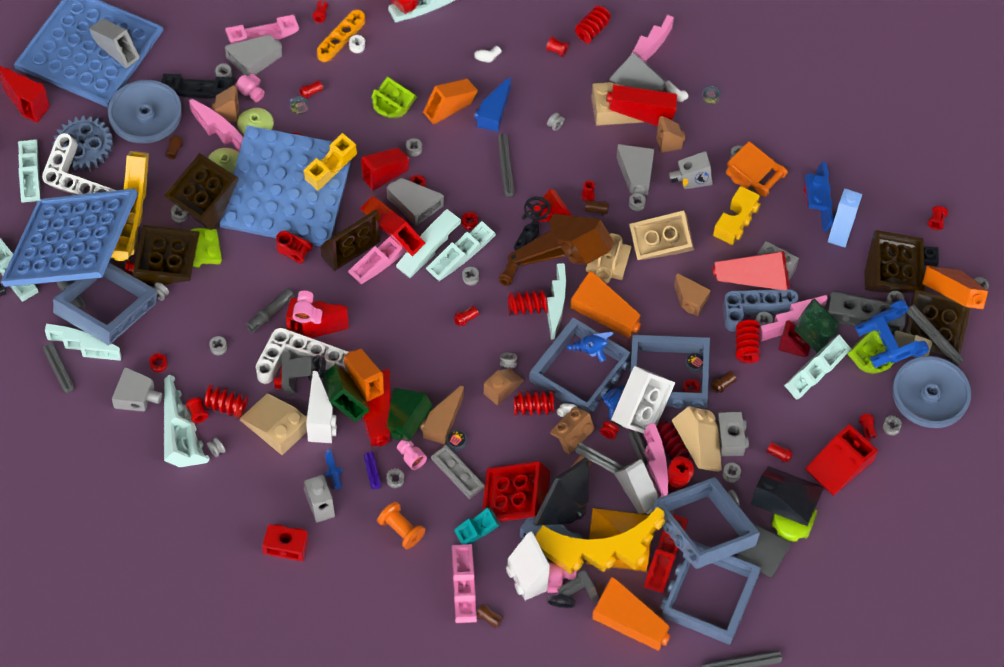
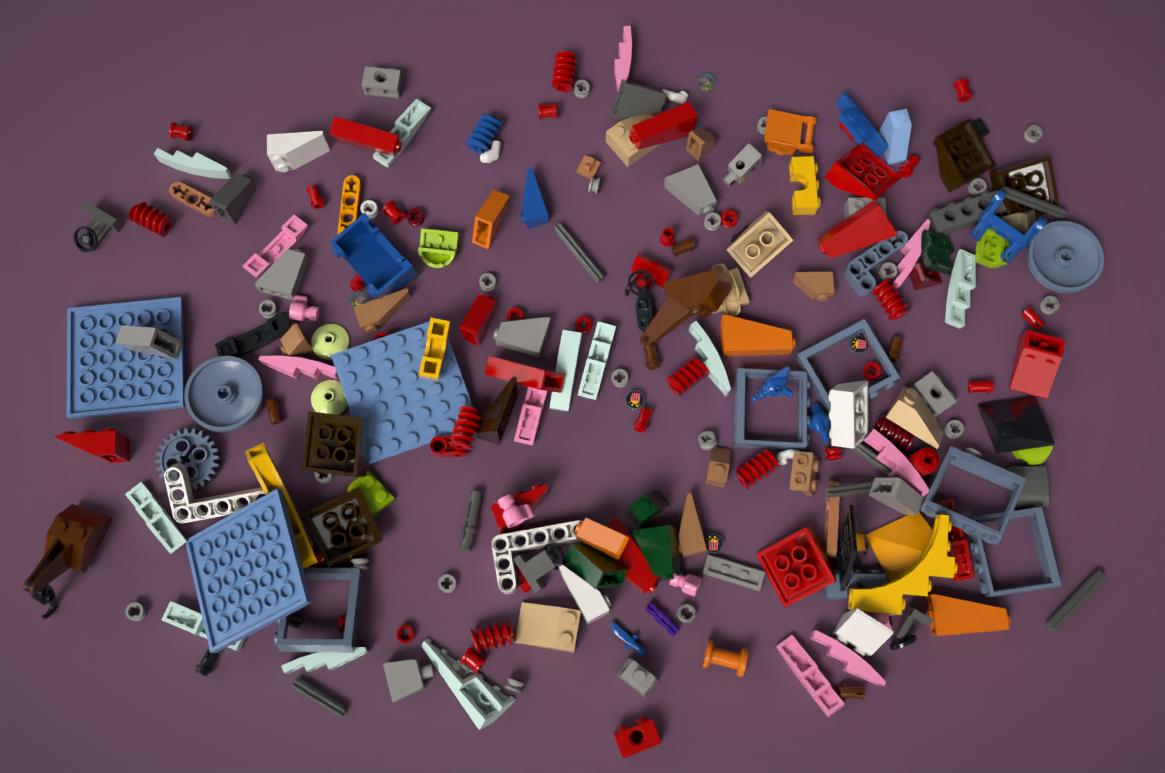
camera: 30 degrees left, 15 degrees up
(311, 119) = (378, 311): none -> medium nougat slope
(313, 235) = (464, 428): none -> red piece
(332, 75) = (373, 257): none -> blue windscreen
(374, 52) = (393, 212): none -> red bush
(391, 64) = (415, 211): none -> dark red bush
(420, 376) = (647, 508): none -> dark green slope
(470, 298) = (634, 400): none -> tile
(478, 527) = (786, 616): teal slope -> none
(490, 34) = (483, 133): none -> blue piece
(506, 591) = (852, 662): none -> bright pink slope
(562, 106) = (588, 167): none -> nougat tile
(599, 41) = (581, 83): none -> light grey bush
(656, 203) = (727, 224): none -> red bush
(796, 231) = (862, 173): none -> red slope
(844, 250) = (907, 169): none -> red pin
(956, 286) = (1030, 149): orange slope -> none

